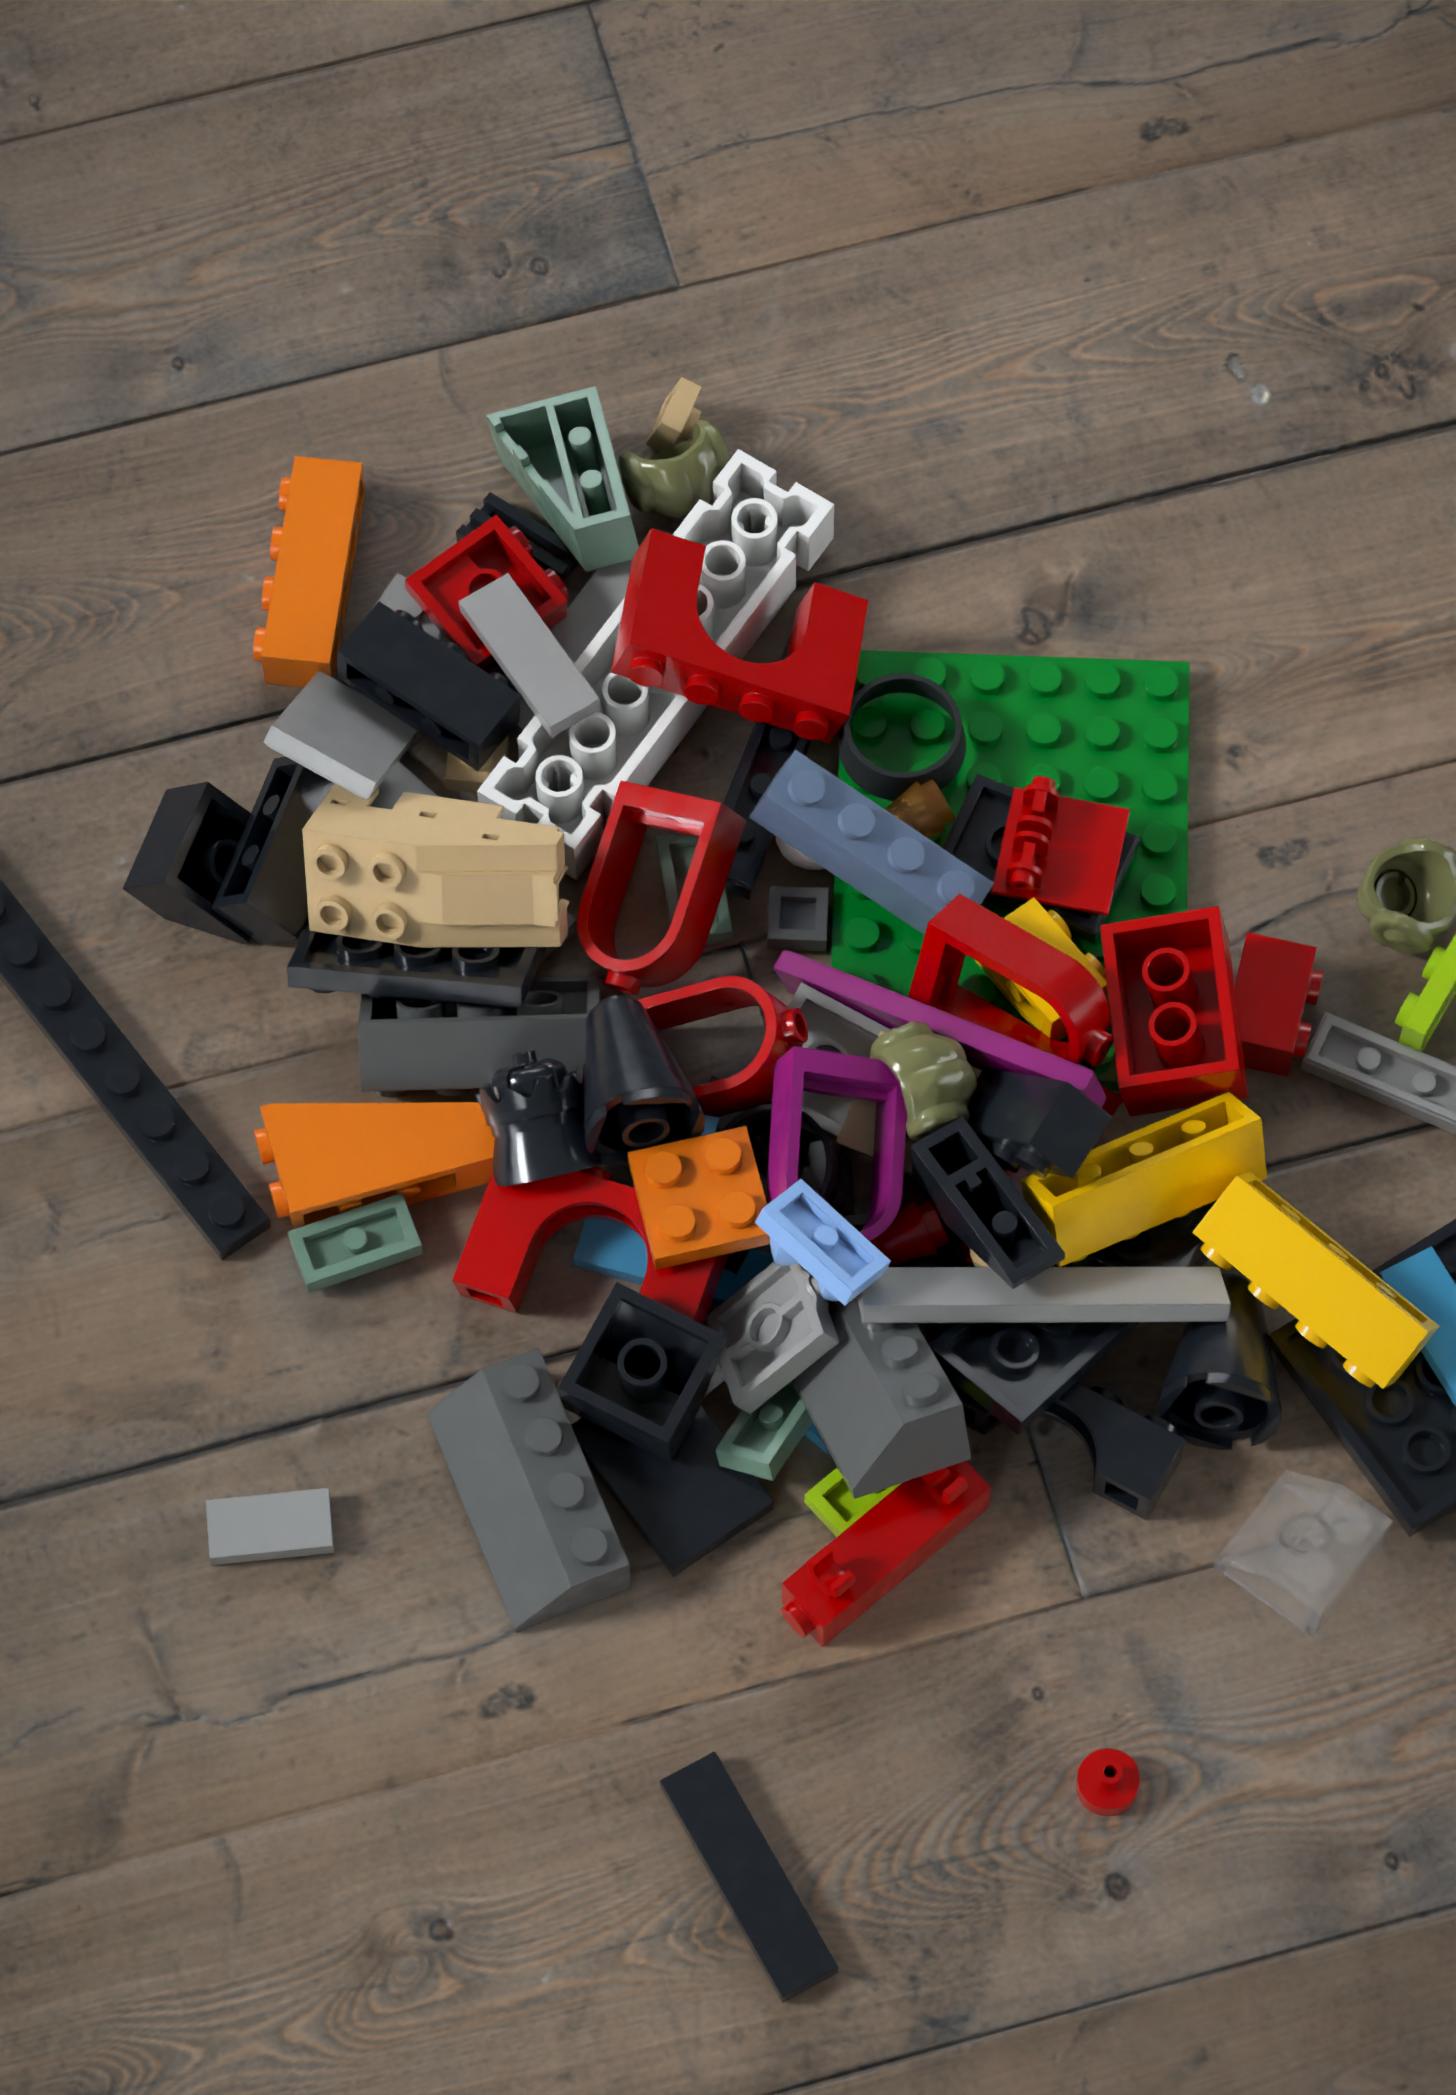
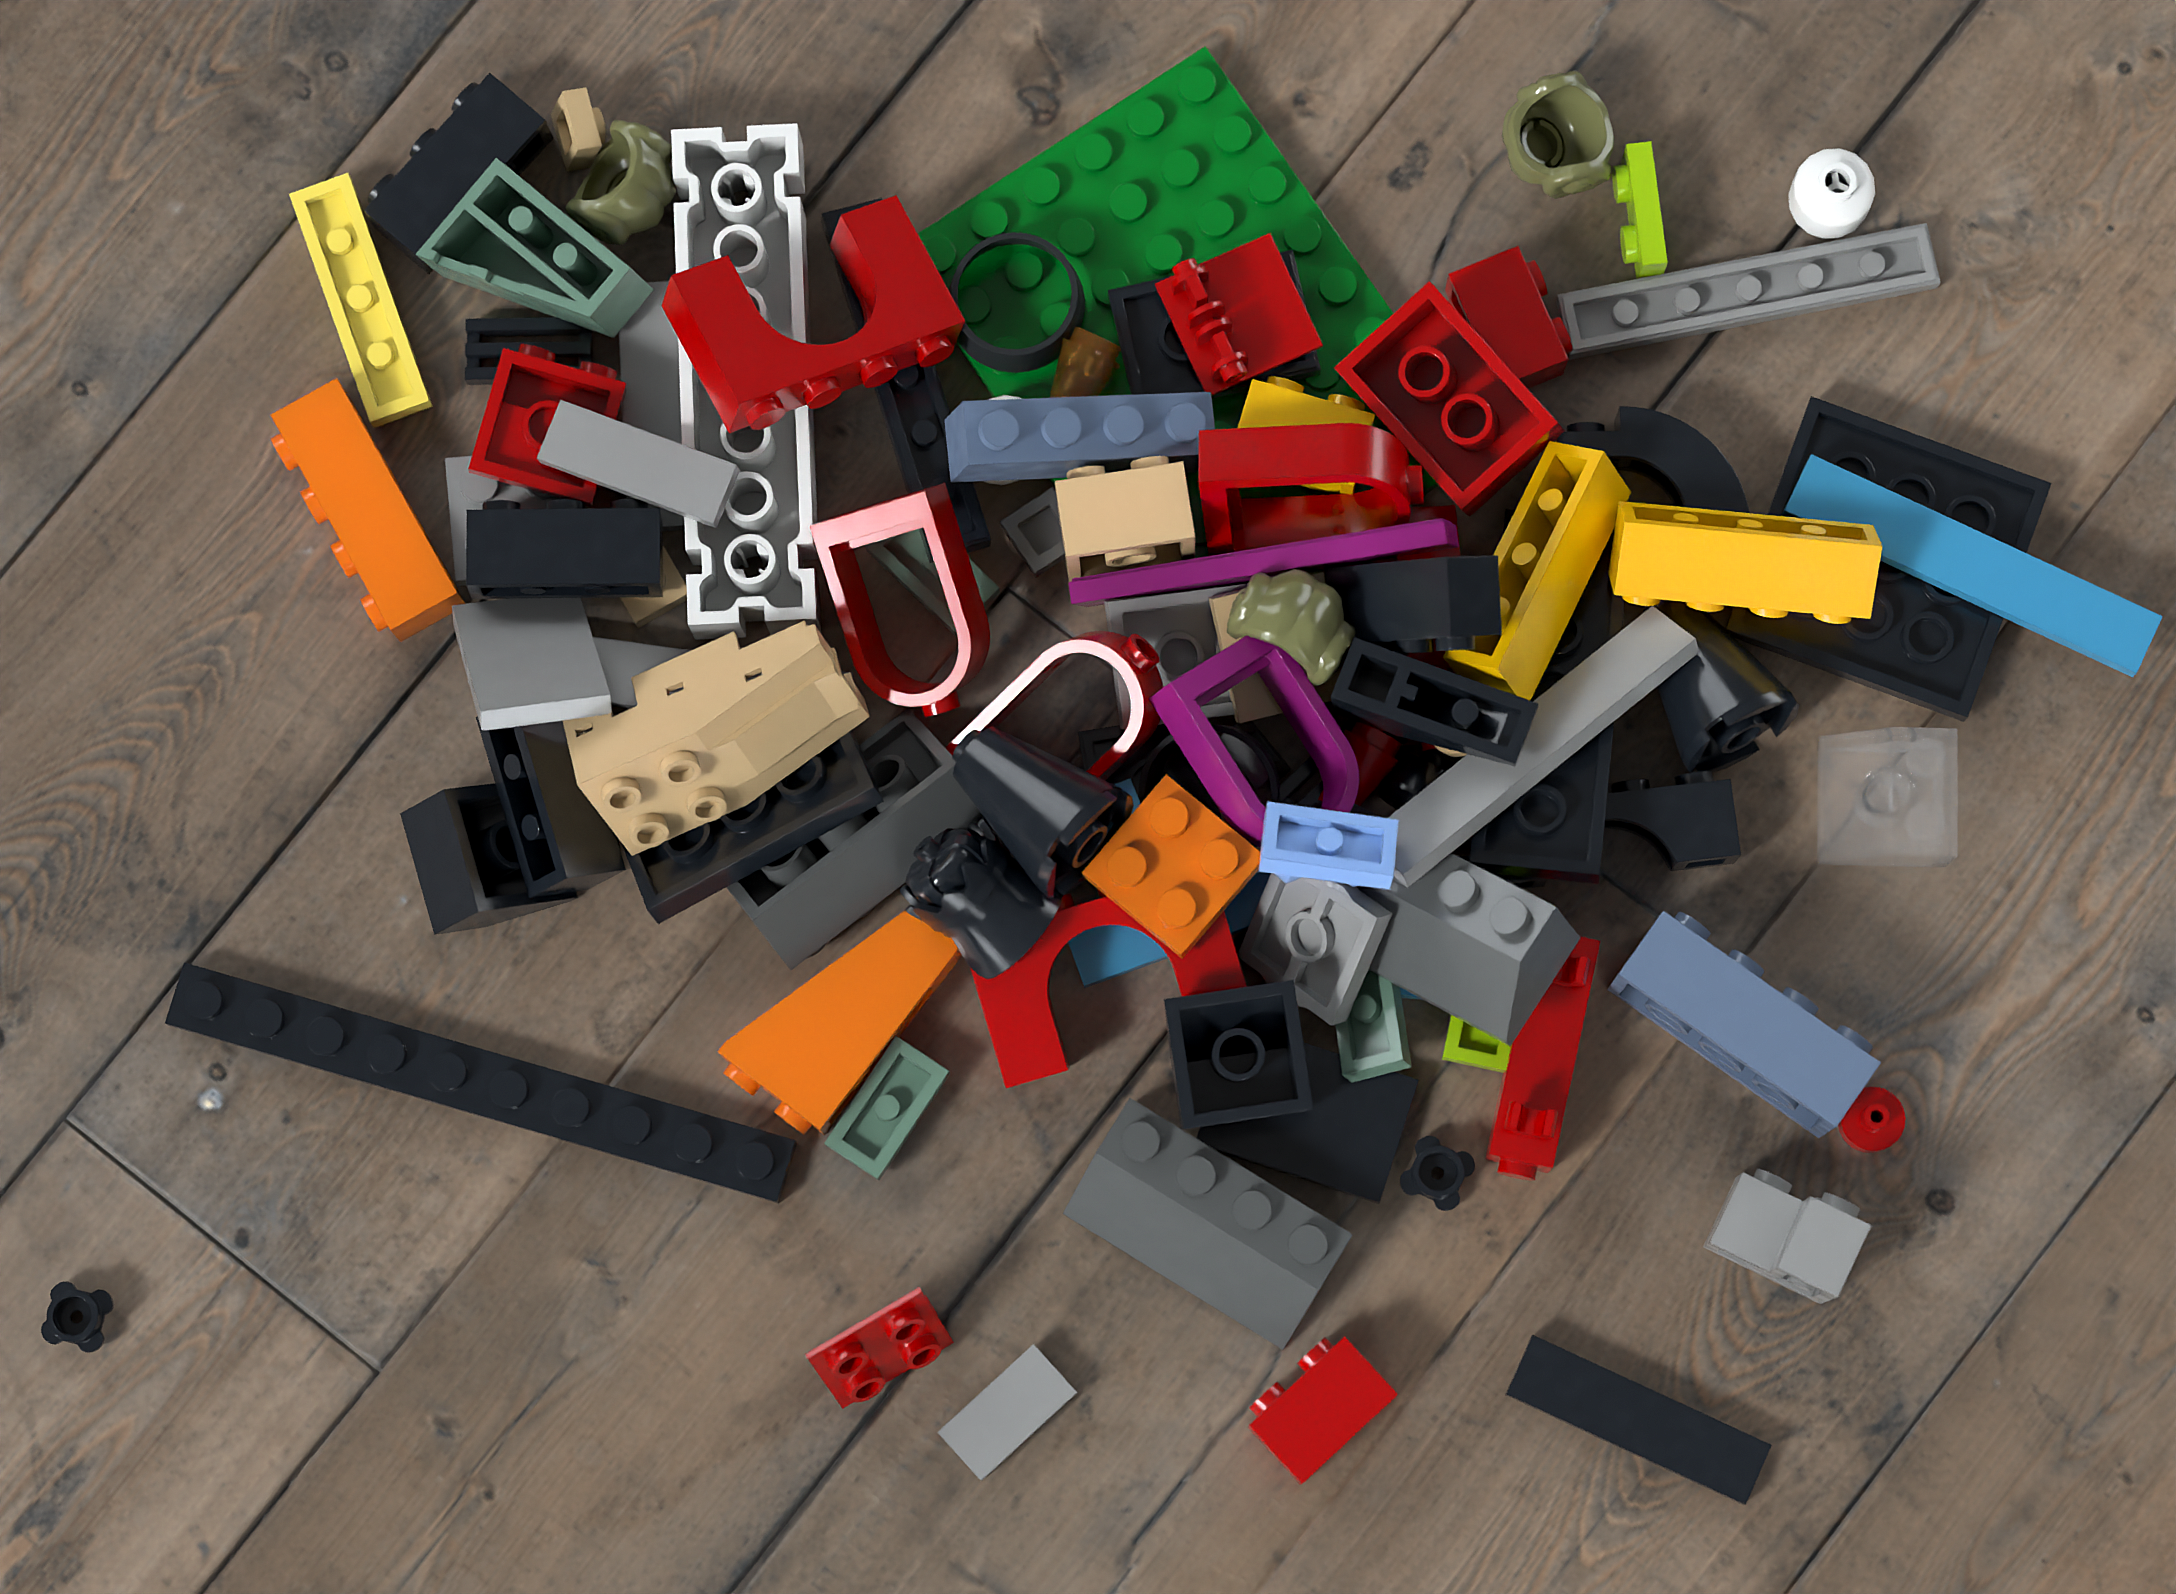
camera: 30 degrees left, 15 degrees up
(210, 1400) = (880, 1348): none -> red hinge
(424, 431) = (360, 300): none -> light yellow plate
(507, 1688) = (1321, 1408): none -> red brick
(610, 363) = (448, 161): none -> black brick
(739, 1565) = (1455, 1168): none -> black plate
(858, 924) = (1125, 517): none -> tan brick
(971, 1813) = (1788, 1240): none -> light grey brick
(1055, 1623) = (1745, 1024): none -> sand blue brick
(1317, 1172) = (1668, 454): none -> black arch

